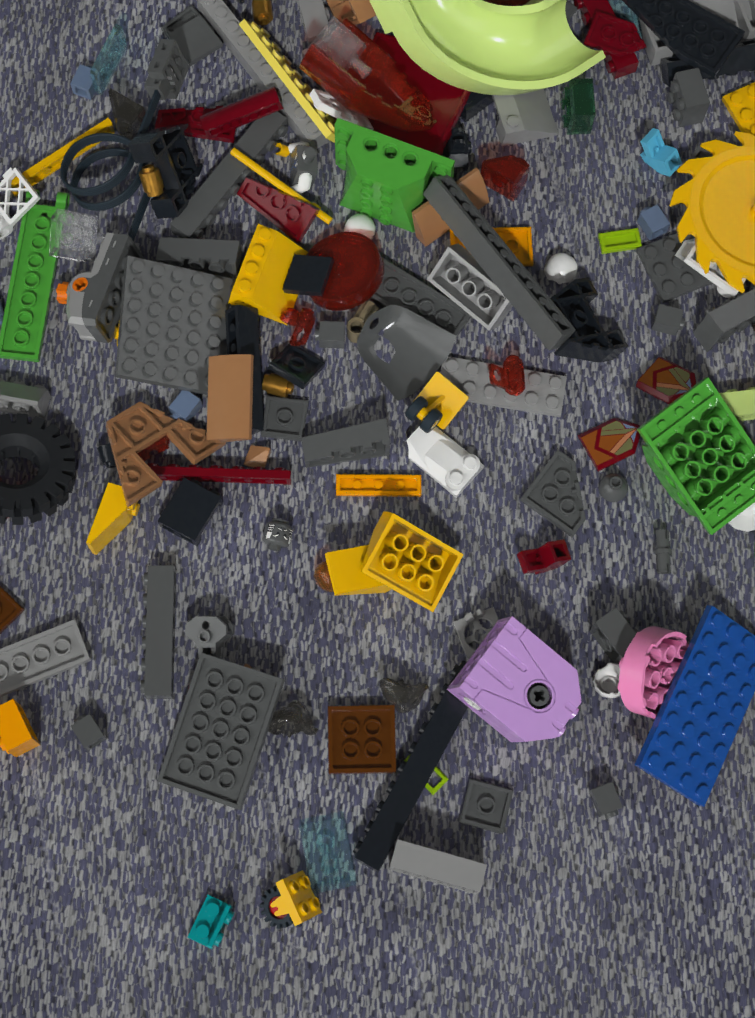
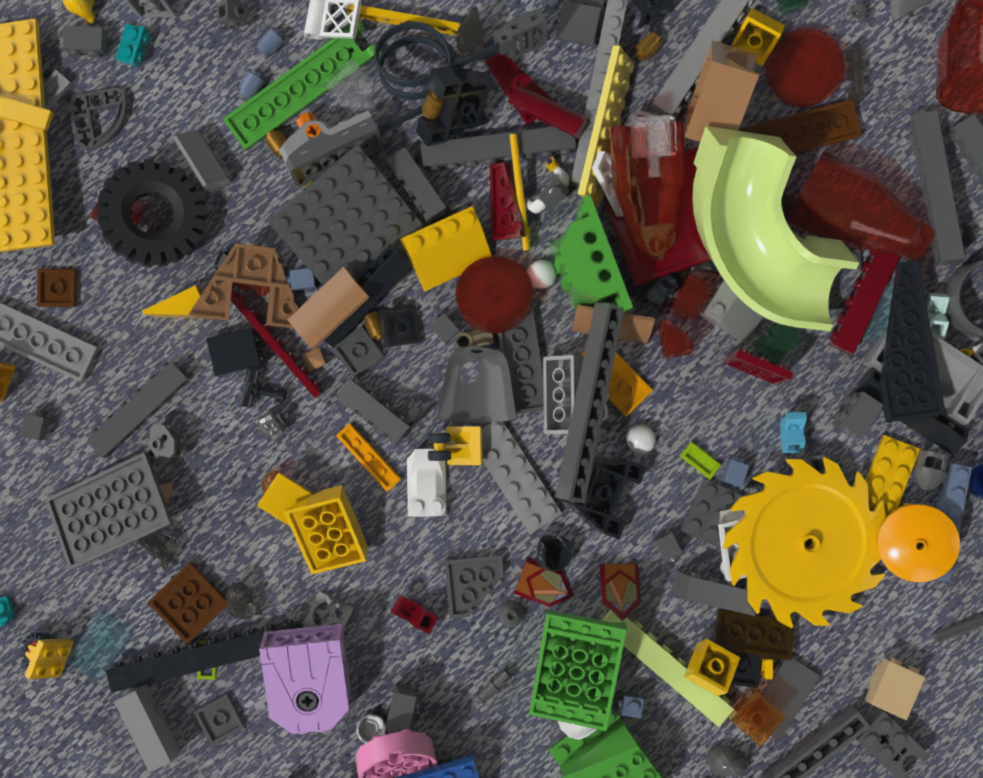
camera: 50 degrees right, 15 degrees up
(58, 331) = (275, 140): none -> pearl gold brick
(234, 524) = (254, 388): none -> black bar
(300, 319) = (433, 298): clear red bracket -> none
(308, 275) = (468, 275): black tile -> none
(484, 135) = (689, 298): none -> clear red brick
(511, 375) = (523, 479): clear red bracket -> none
(585, 131) = (758, 367): none -> dark red plate
(593, 406) = (554, 552): none -> black hair
(613, 35) = (857, 318): dark red tile -> none

